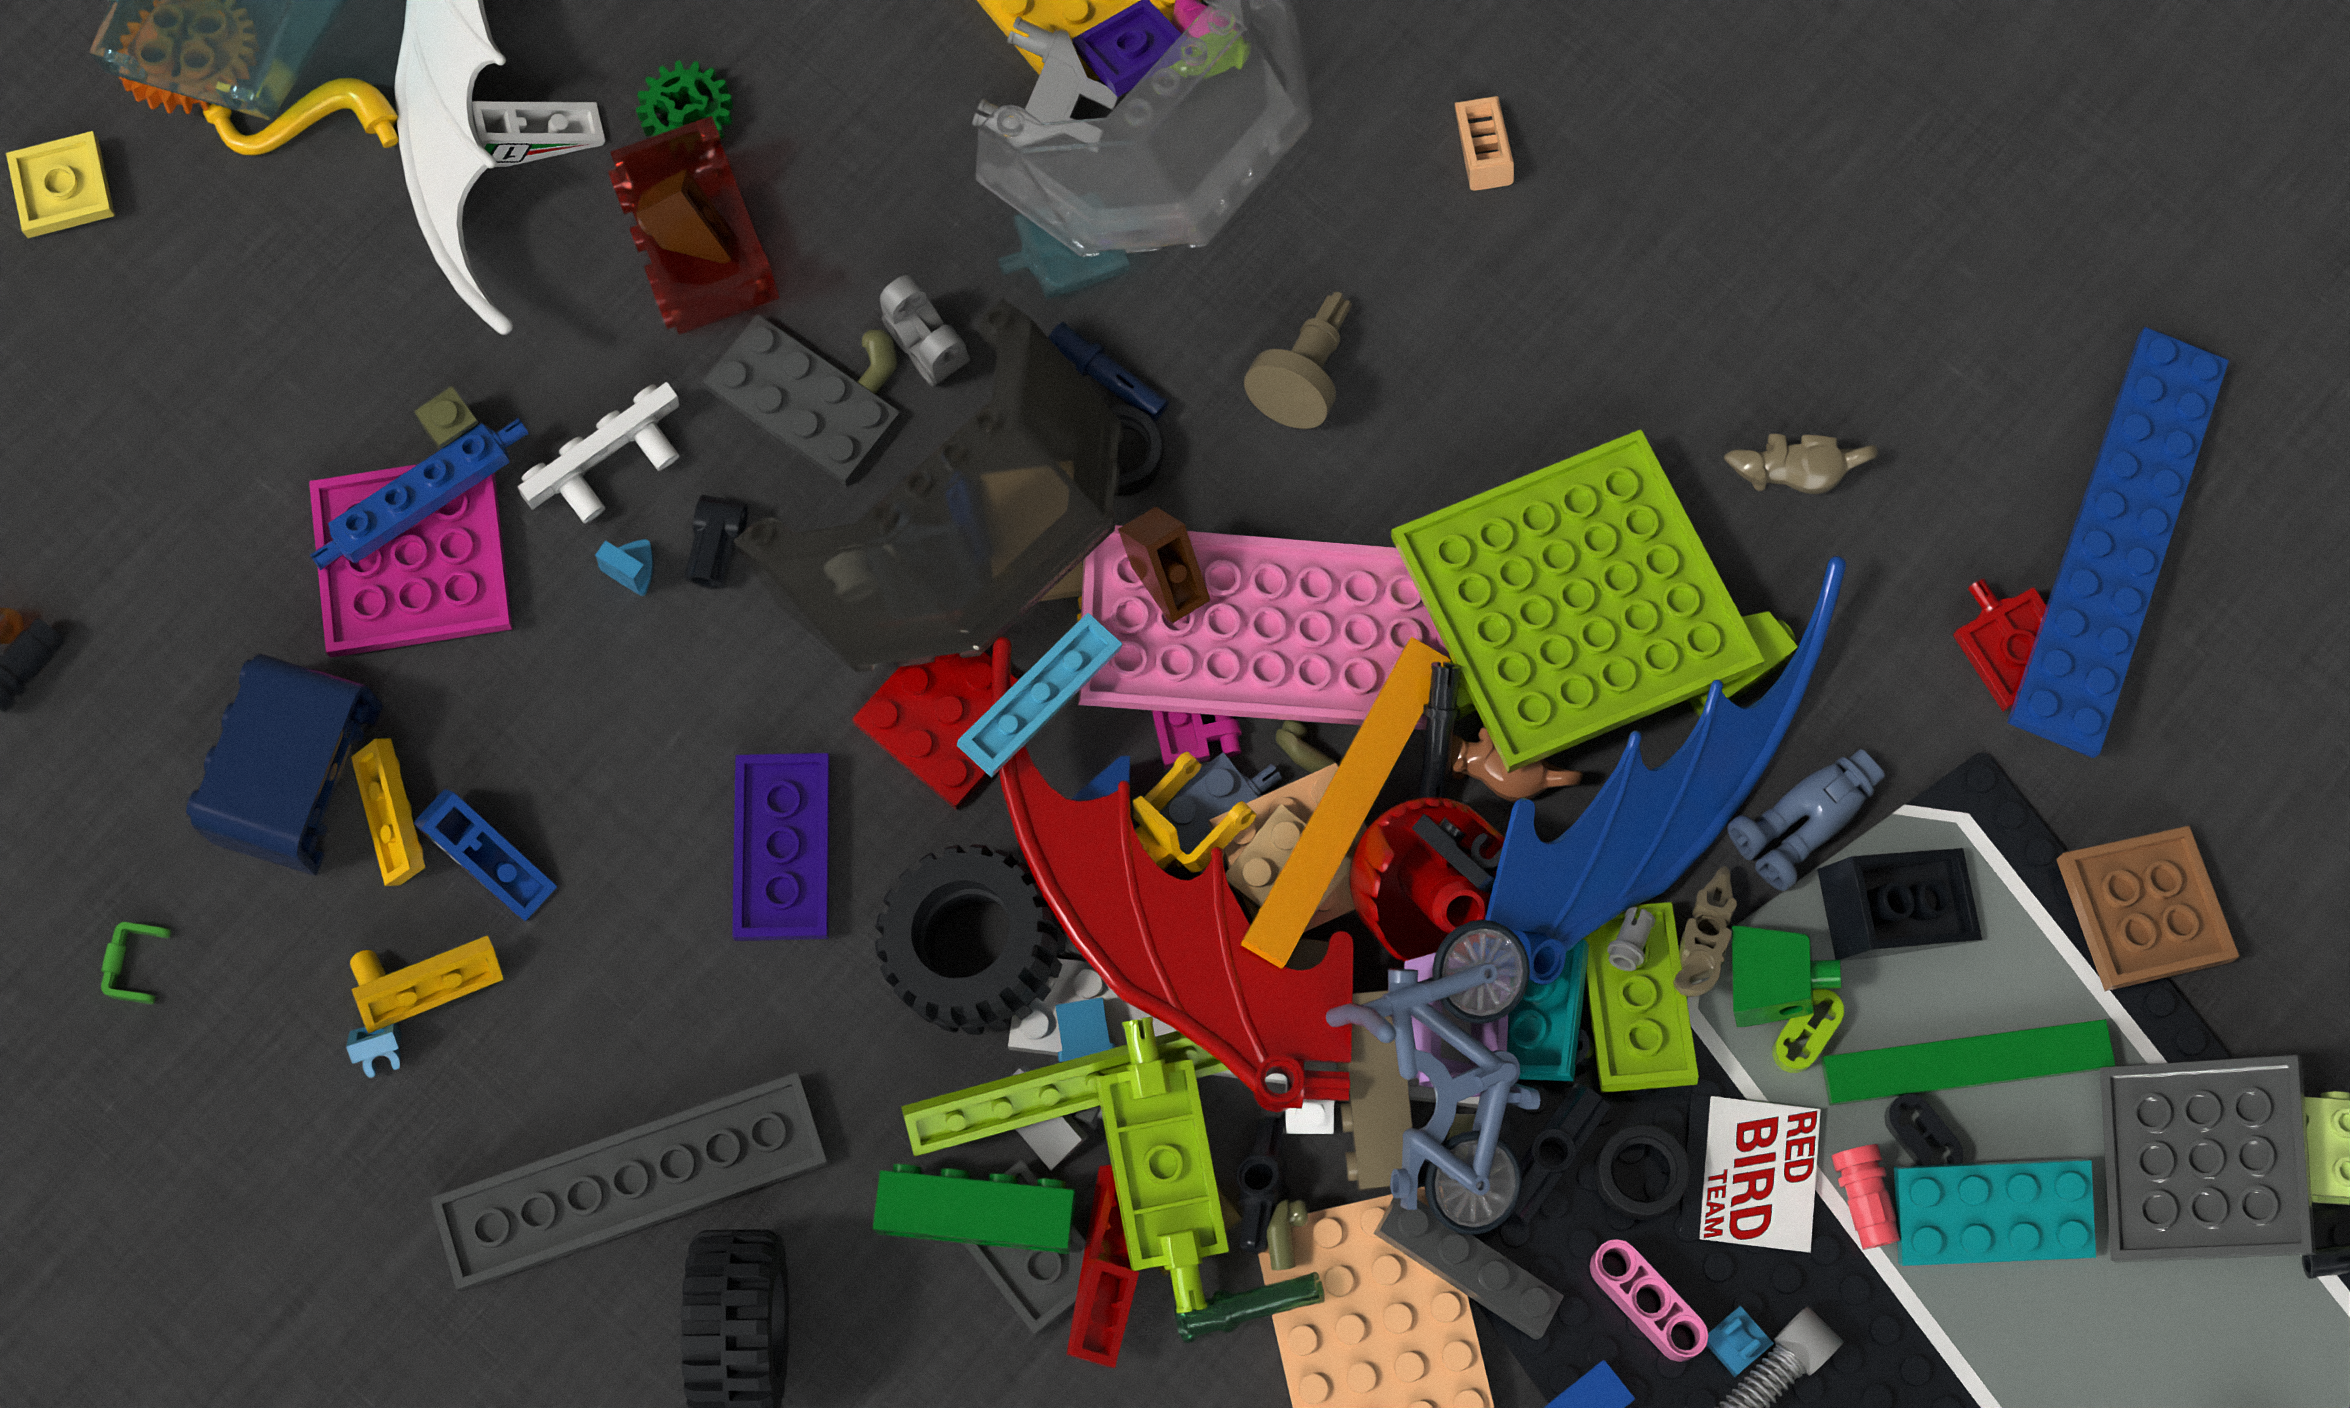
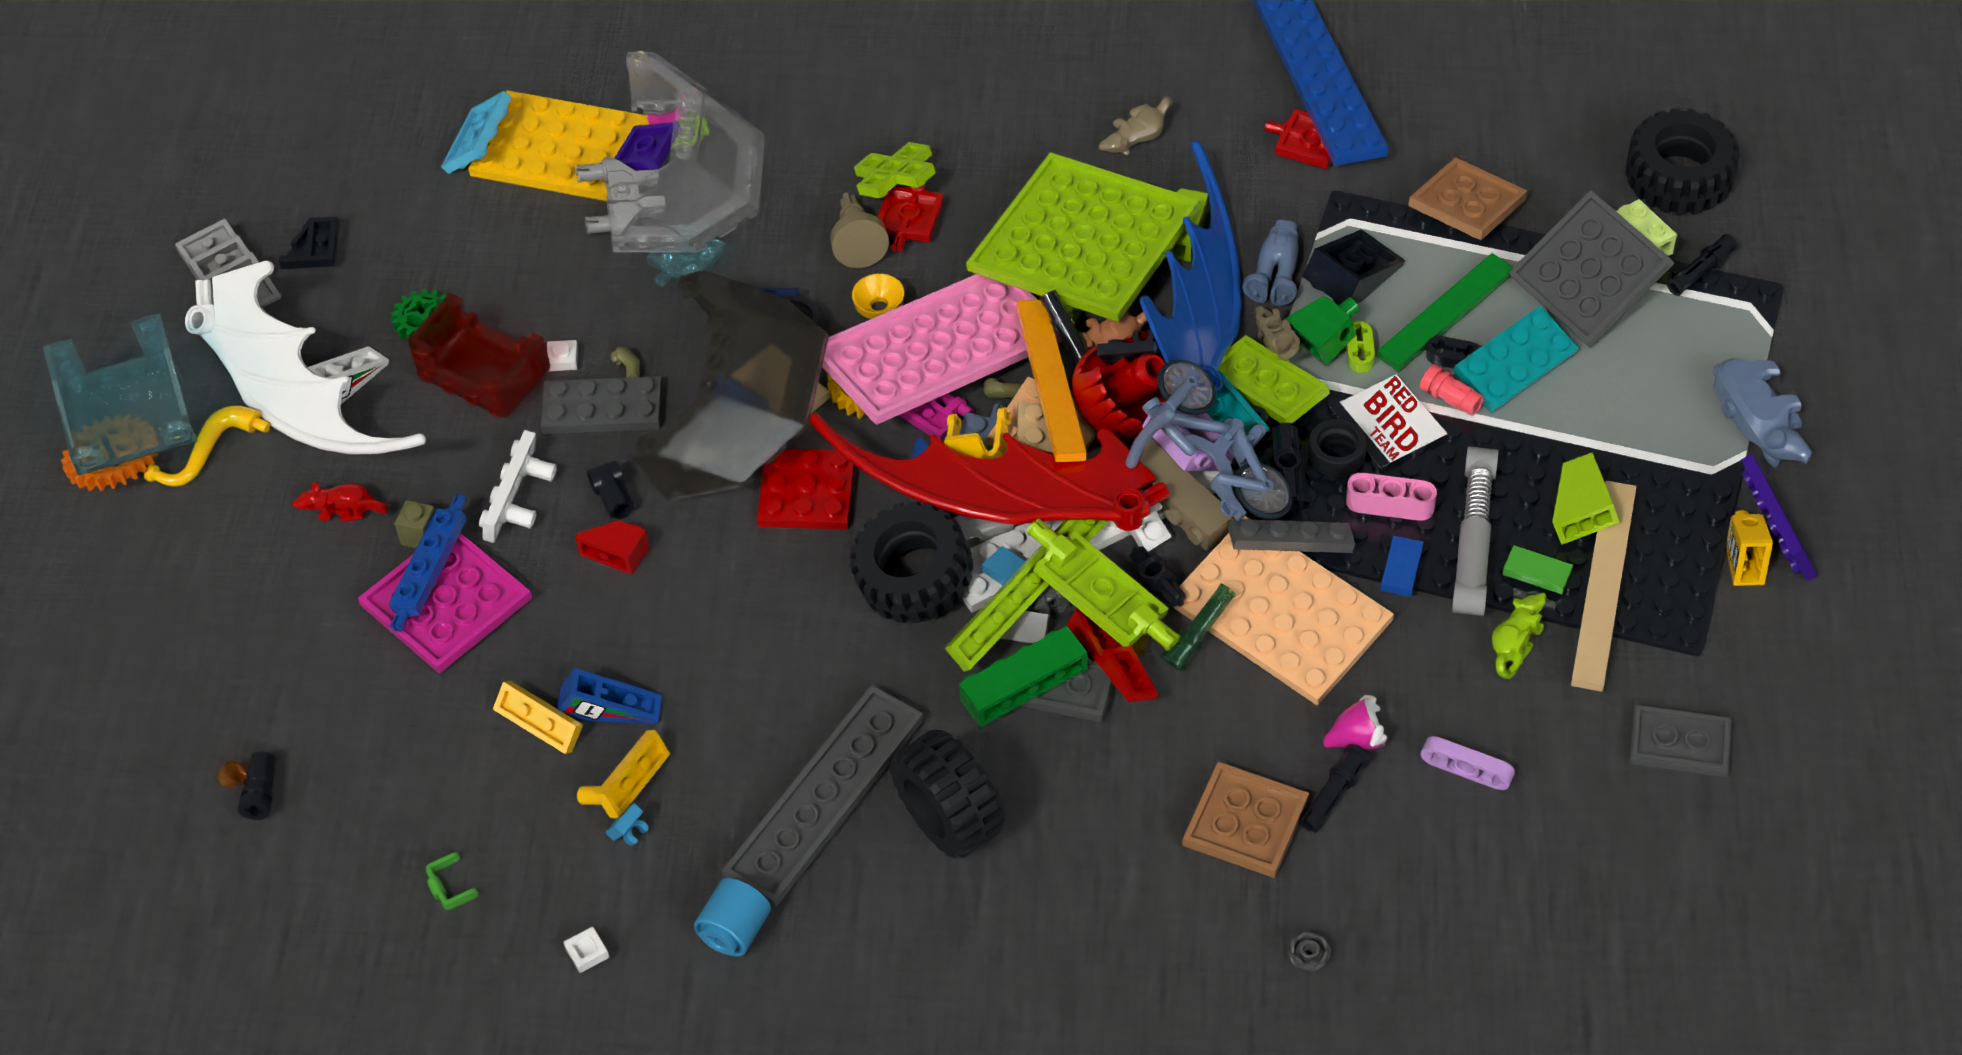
camera: 35 degrees left, 20 degrees down
(60, 184) = (86, 557): light yellow plate -> none
(207, 1181) = (586, 949): none -> white plate
(279, 761) = (460, 727): dark blue windscreen -> none
(384, 1279) = (732, 917): none -> dark azure piece
(398, 318) = (347, 500): none -> red animal
(628, 564) = (568, 526): dark azure tile -> none
(659, 630) = (614, 545): none -> red slope
(685, 219) = (469, 353): reddish brown slope -> none
(781, 847) = (770, 597): dark purple plate -> none
(810, 288) = (562, 355): none -> white plate
(920, 331) = (638, 334): light grey piece -> none
(1039, 694) = (855, 420): medium azure plate -> none
(1165, 562) = (867, 332): reddish brown slope -> none
(1252, 470) = (877, 289): none -> yellow piece
(1279, 1232) = (1184, 577): olive arm -> none
(1396, 384) = (910, 214): none -> red plate
(1423, 306) = (902, 168): none -> lime plate
(1490, 168) = (863, 96): light nougat slope -> none
(1627, 949) = (1243, 358): light grey pin -> none
(1738, 1341) = (1449, 488): dark azure tile -> none

